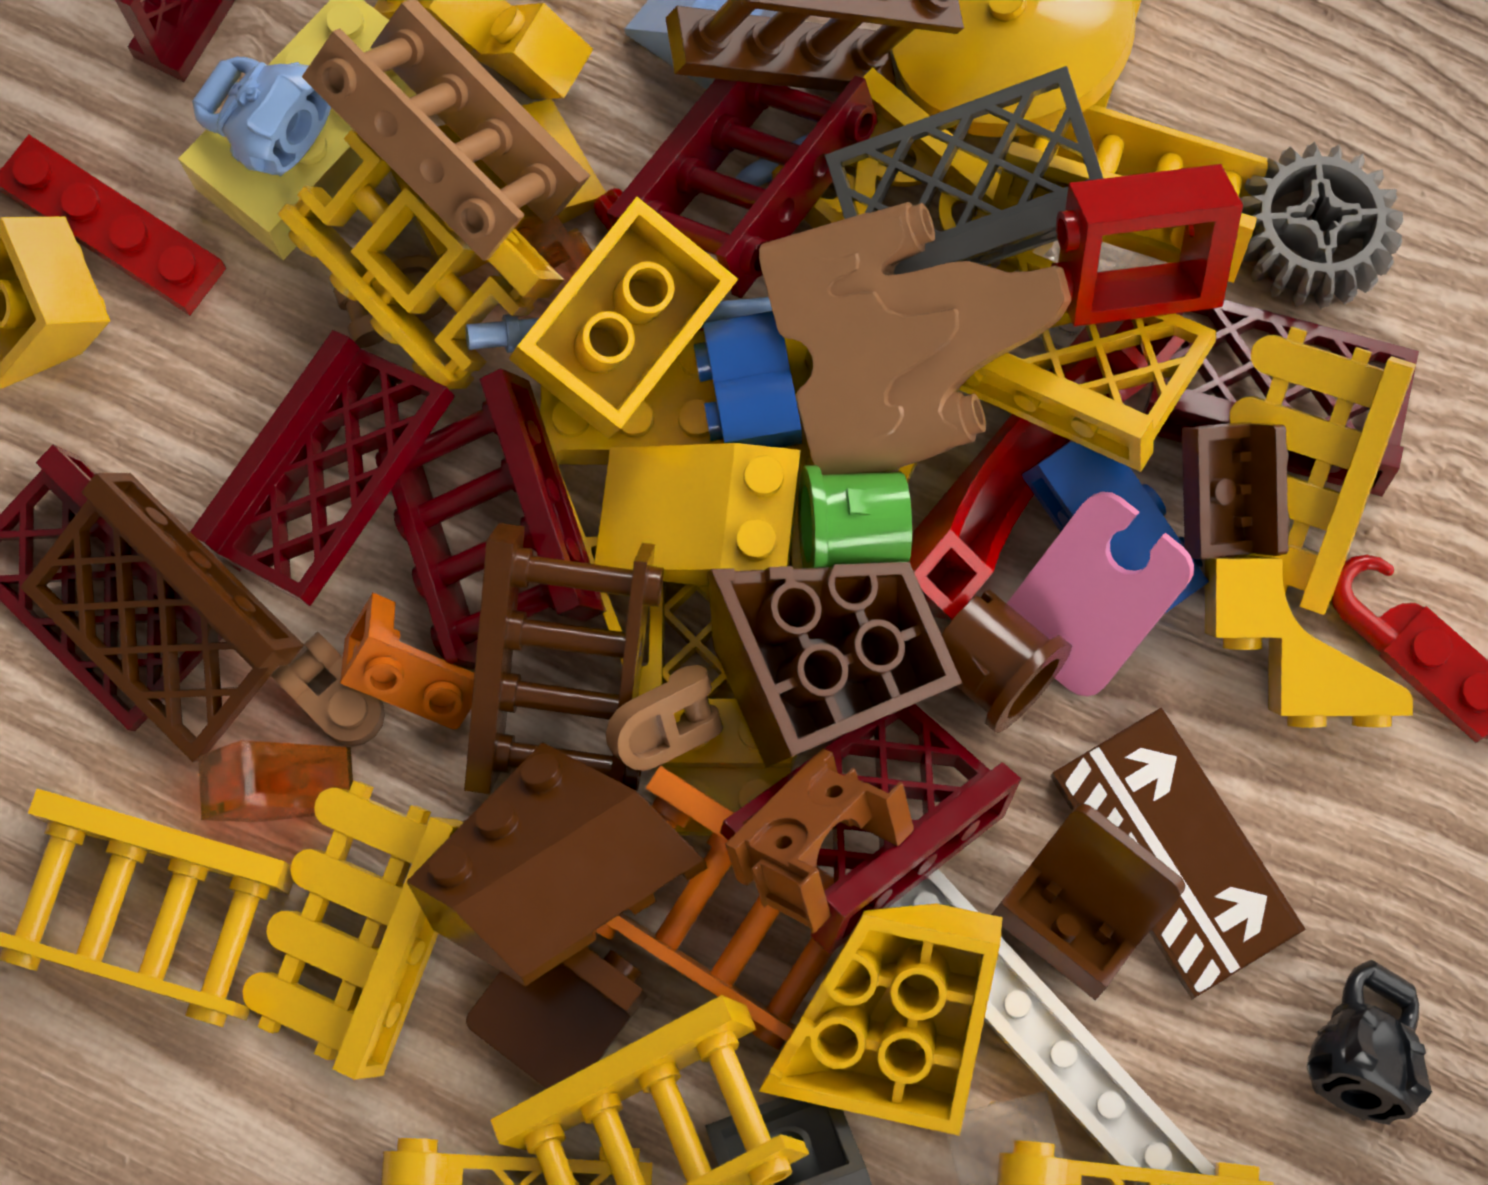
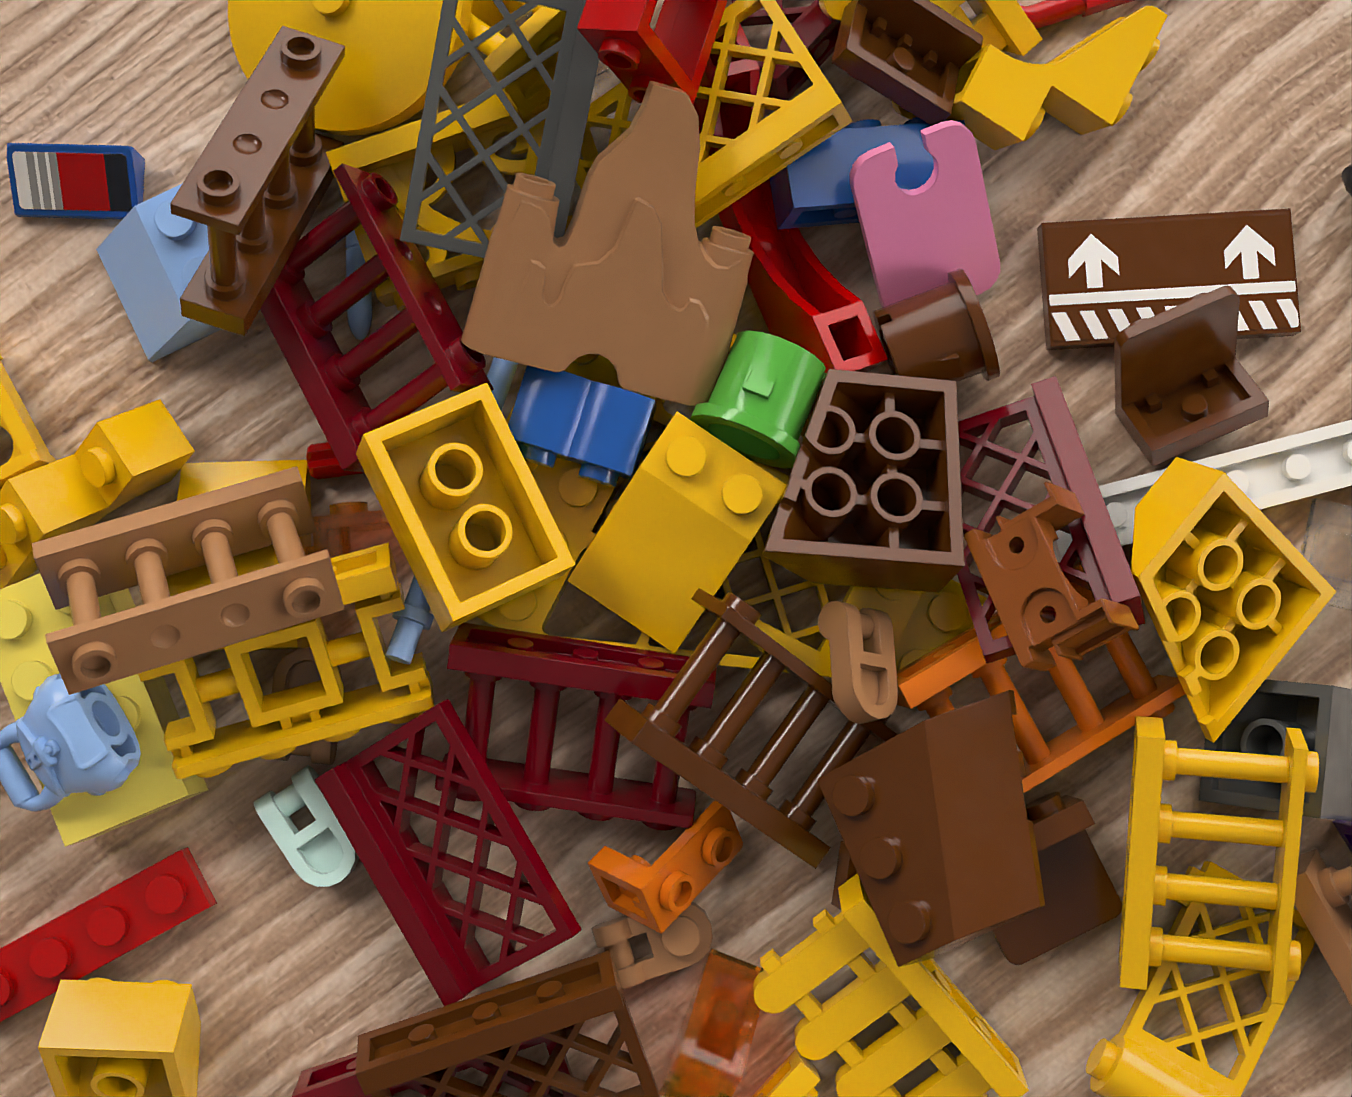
camera: 70 degrees left, 10 degrees up
(274, 366) = (319, 851): none -> light aqua plate

